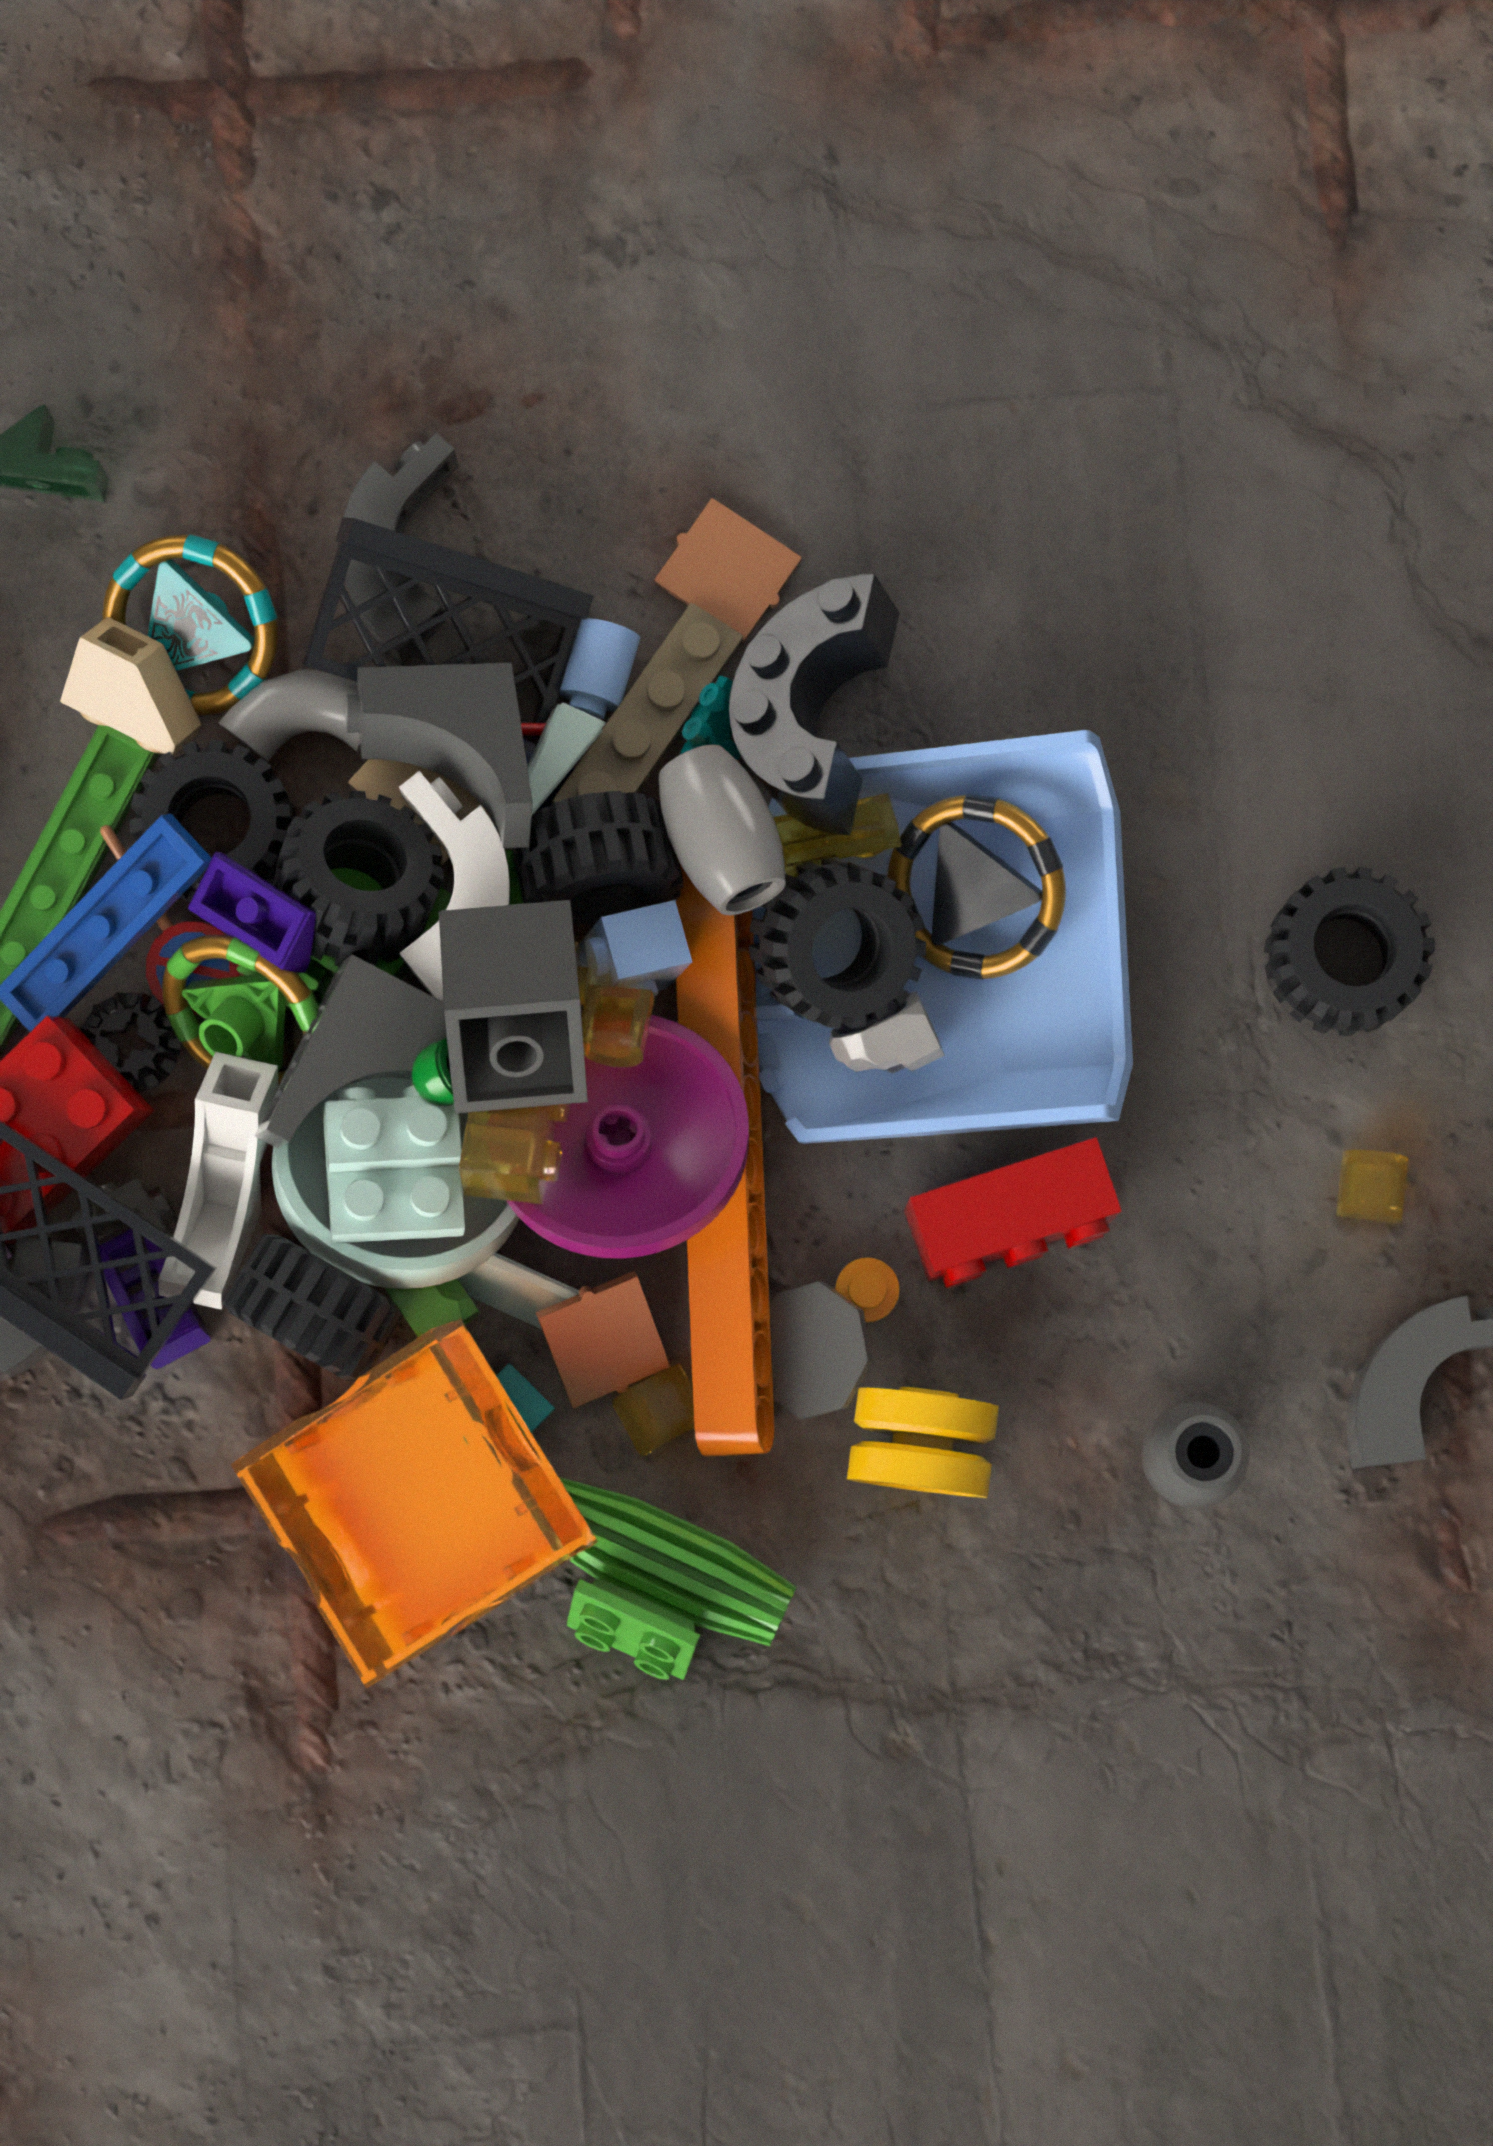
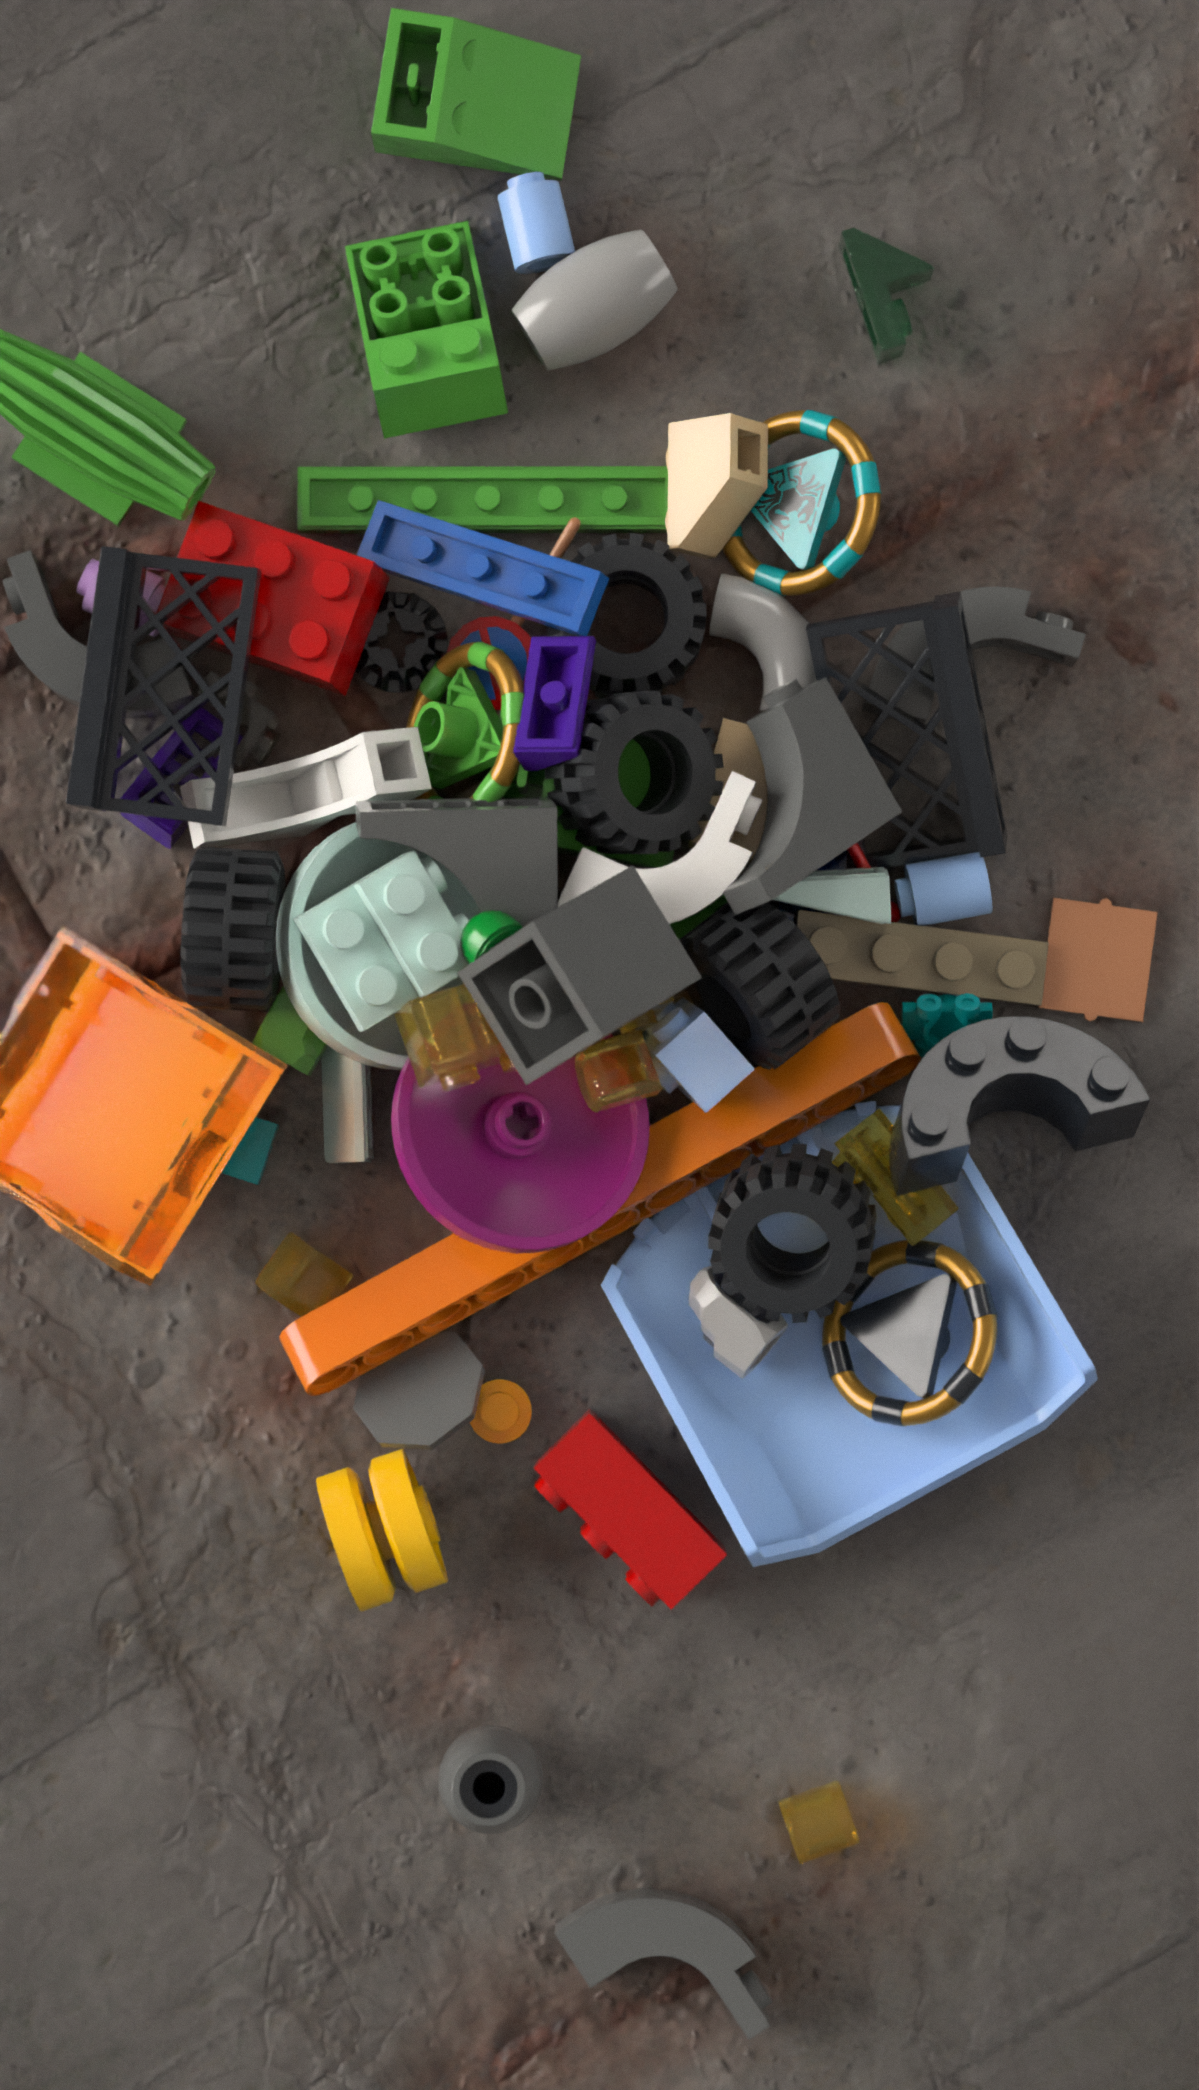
camera: 70 degrees right, 5 degrees up
(603, 1339) = (337, 1198): nougat piece -> none
(661, 1580) = (152, 1358): bright green plate -> none
(721, 829) = (839, 1079): light grey piece -> none
(1379, 909) = (1056, 1743): black tyre -> none

